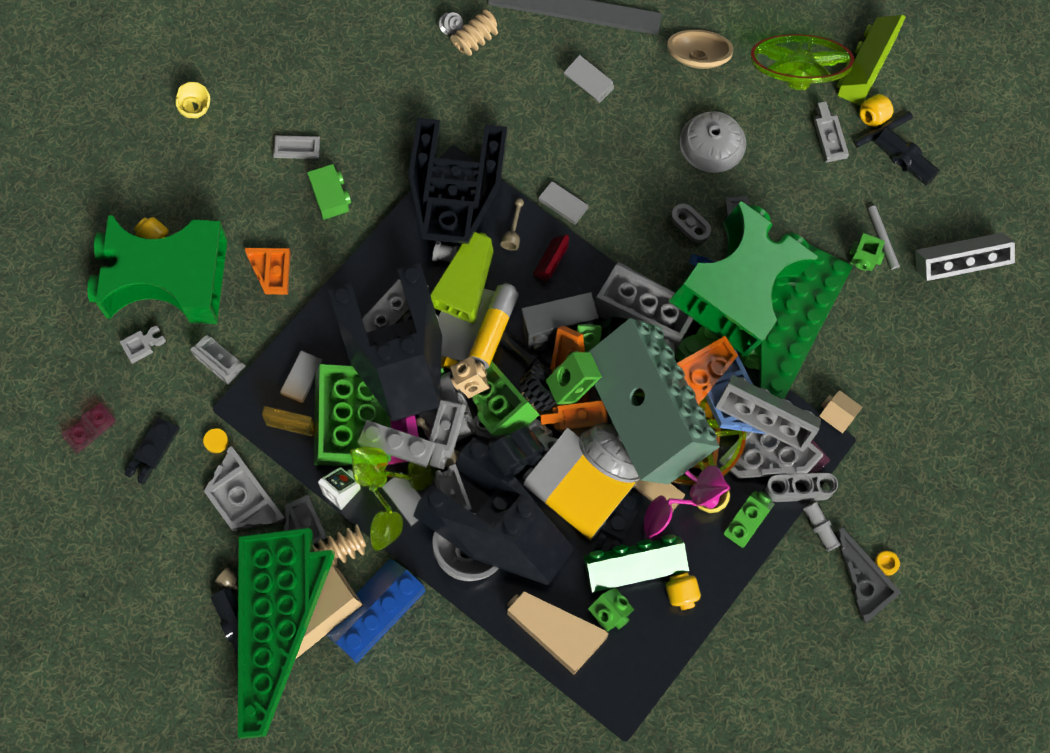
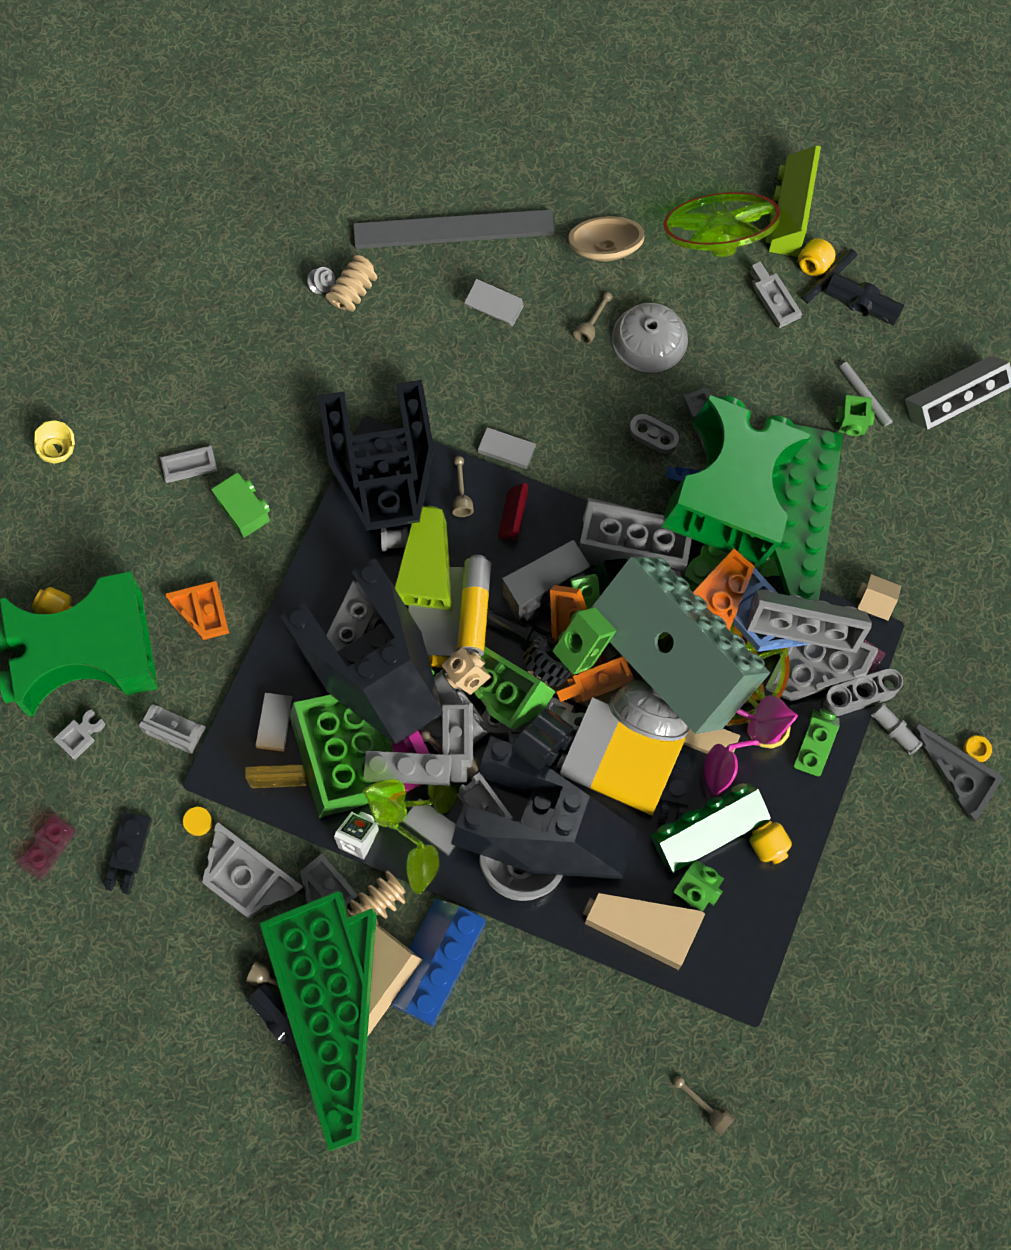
camera: 15 degrees left, 0 degrees up
(661, 120) = (587, 328): none -> dark tan hinge

